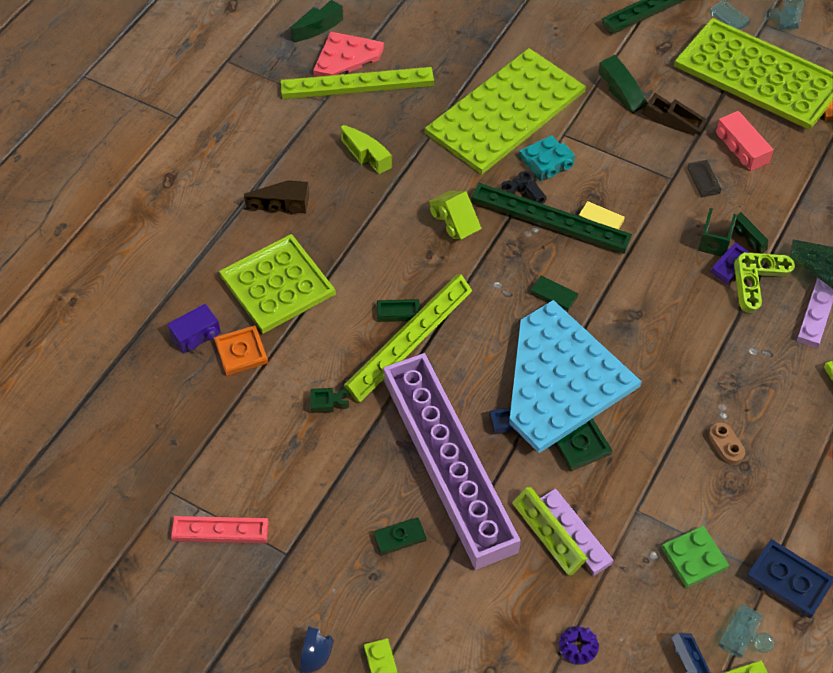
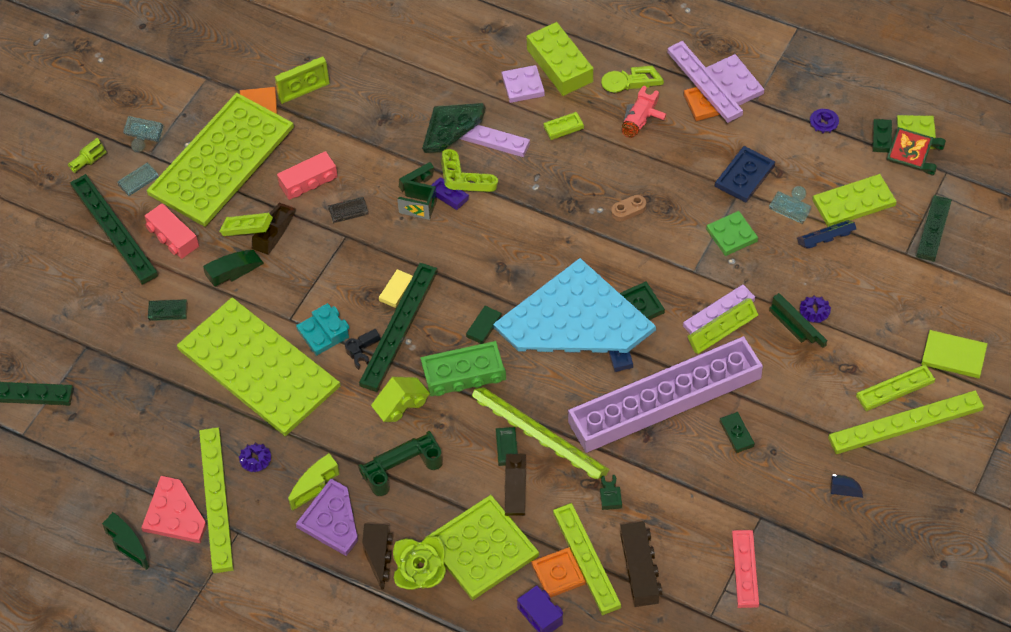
camera: 90 degrees left, 0 degrees up
(236, 421) = (639, 564): none -> dark brown brick
(250, 373) = (587, 559): none -> lime plate
(258, 228) = (410, 553): none -> lime brick
(325, 163) = (331, 518): none -> medium lavender plate
(343, 309) = (515, 485): none -> dark brown slope
(396, 113) = (250, 463): none -> dark purple gear
(397, 234) = (424, 446): none -> dark green piece
(494, 272) = (463, 368): none -> bright green bracket
(553, 614) = (795, 321): none -> dark green piece
(572, 43) = (167, 309): none -> clear green plate
(664, 38) = (171, 231): none -> coral brick
(670, 89) = (246, 224): none -> lime plate

